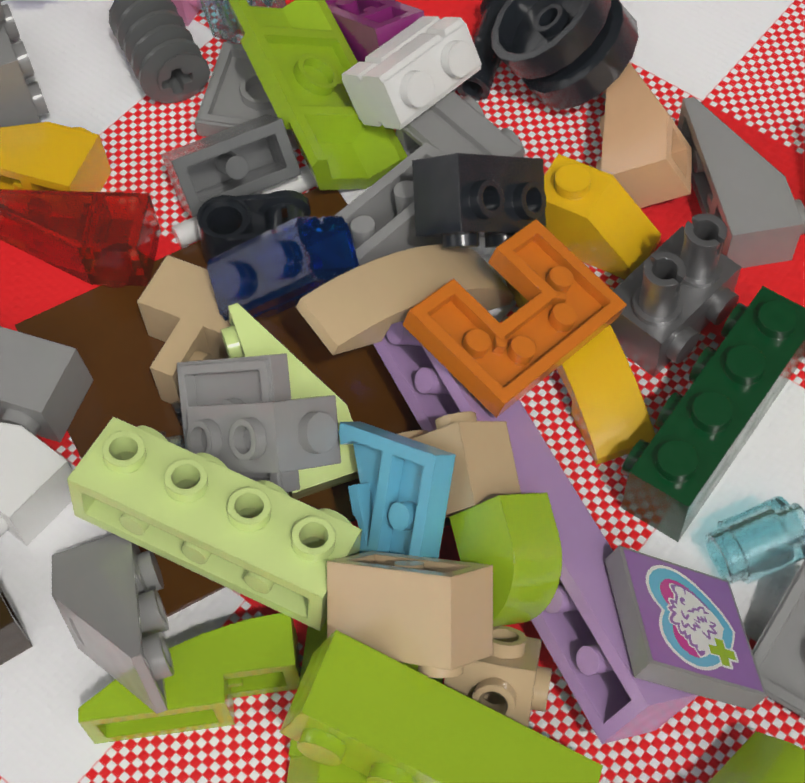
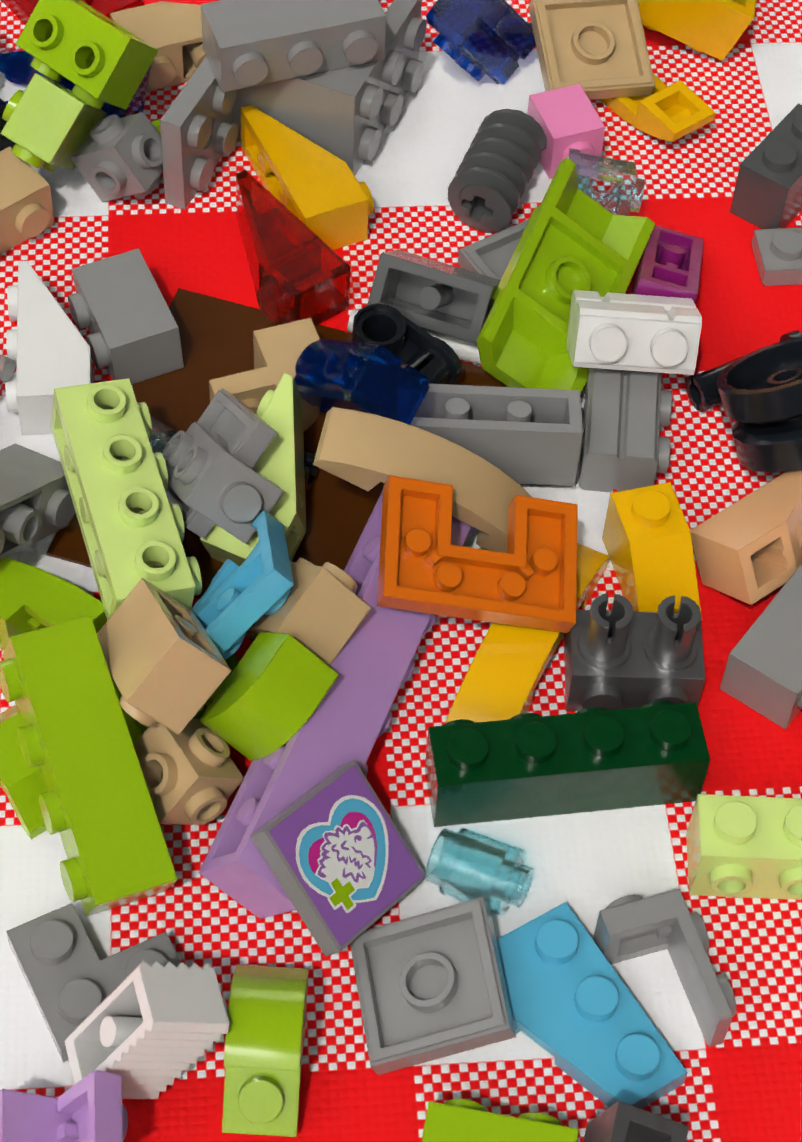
camera: 40 degrees right, 5 degrees down
(477, 197) = (555, 455): black brick -> none

